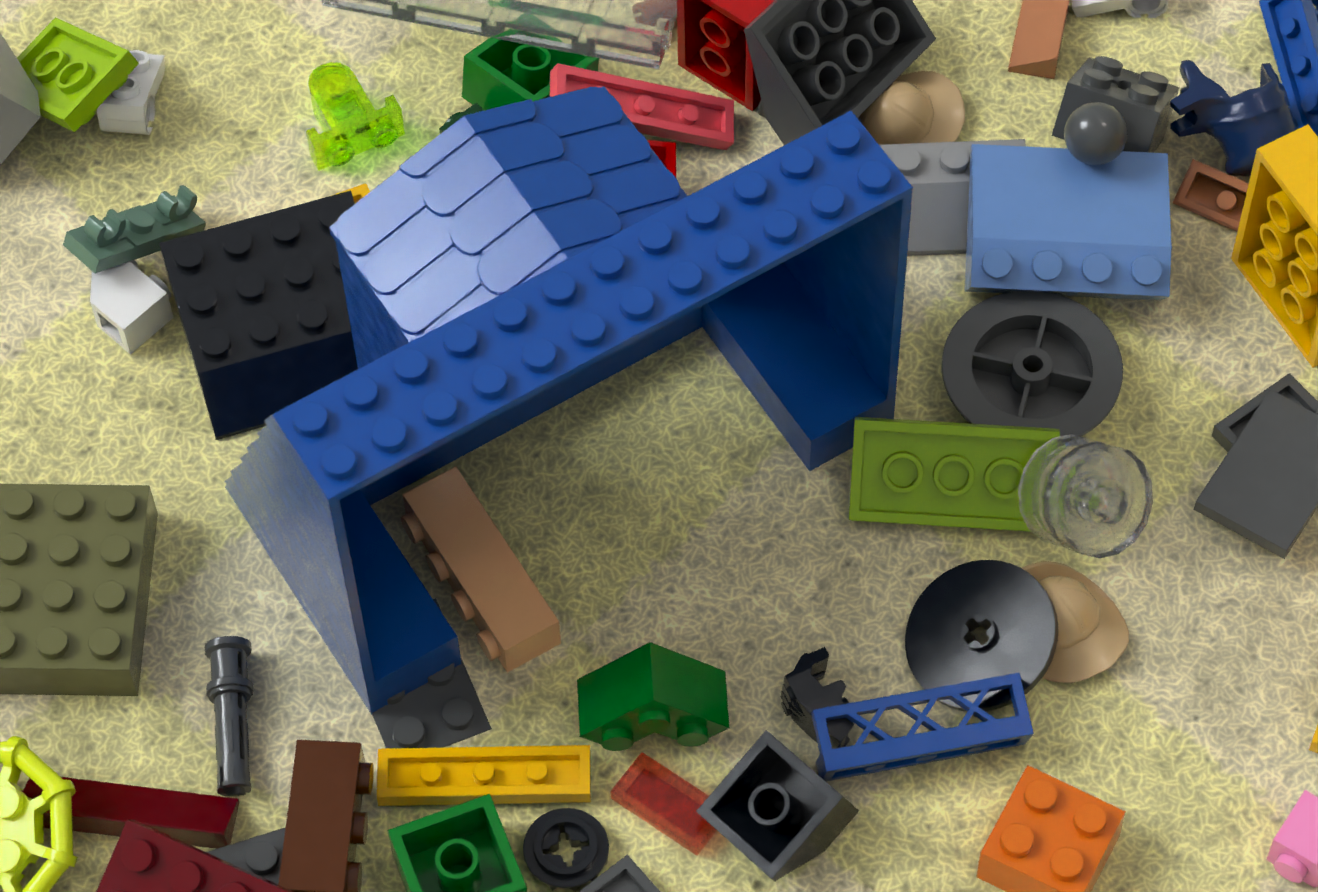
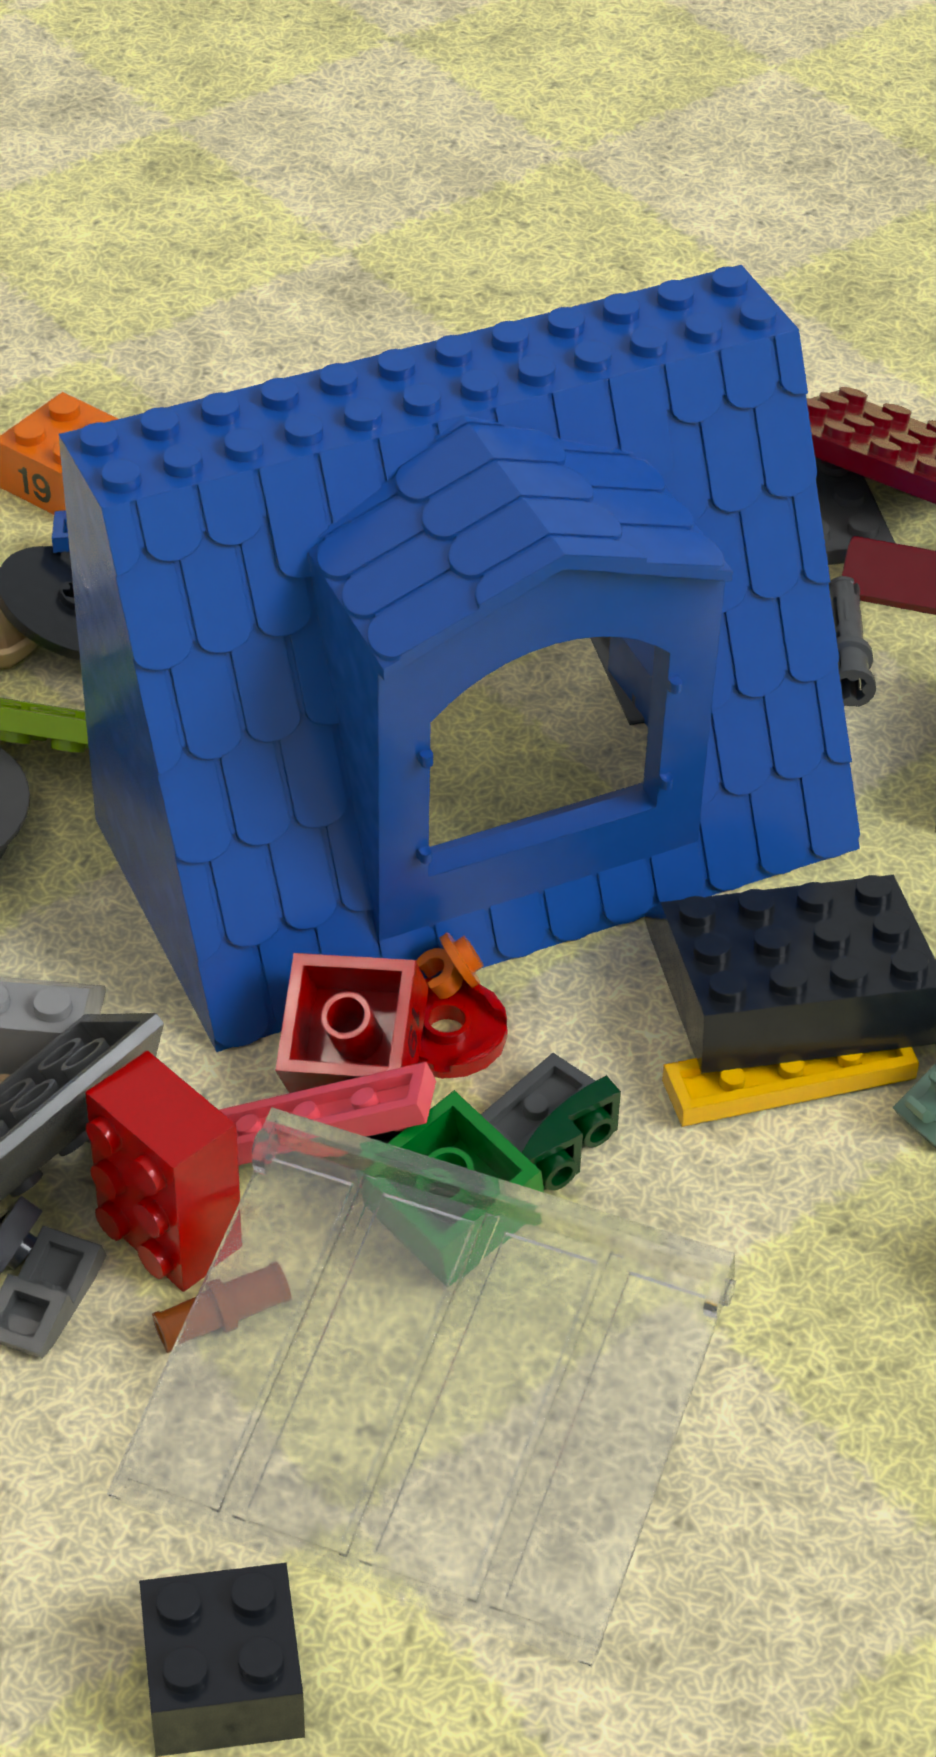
camera: 175 degrees left, 15 degrees down
(347, 118) = (703, 1193): clear neon green pin -> none
(481, 570) = (579, 717): light nougat brick -> none

